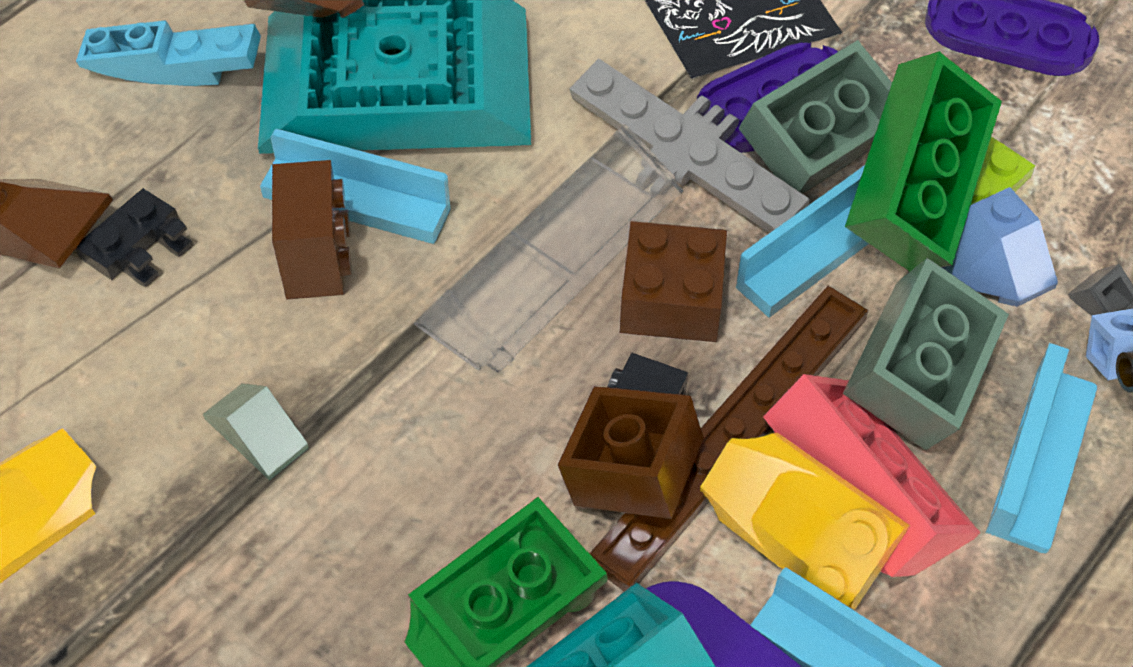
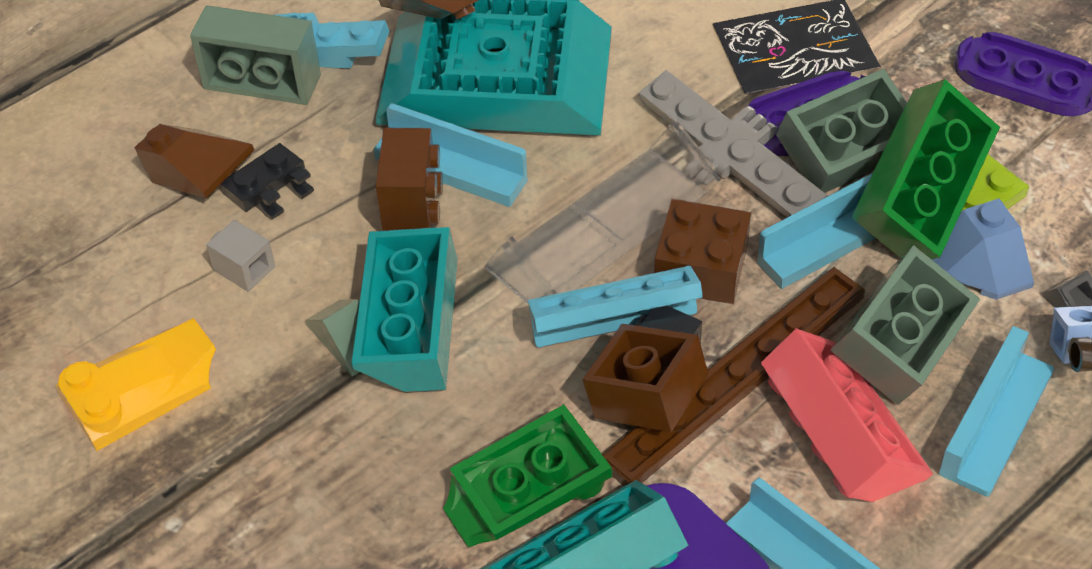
camera: 10 degrees right, 5 degrees down
(100, 79) = (256, 54): none -> sand green brick
(112, 338) = (241, 255): none -> light grey brick
(327, 390) = (407, 308): none -> teal slope
(577, 361) = (609, 305): none -> medium azure panel
(802, 515) = (780, 439): yellow slope -> none

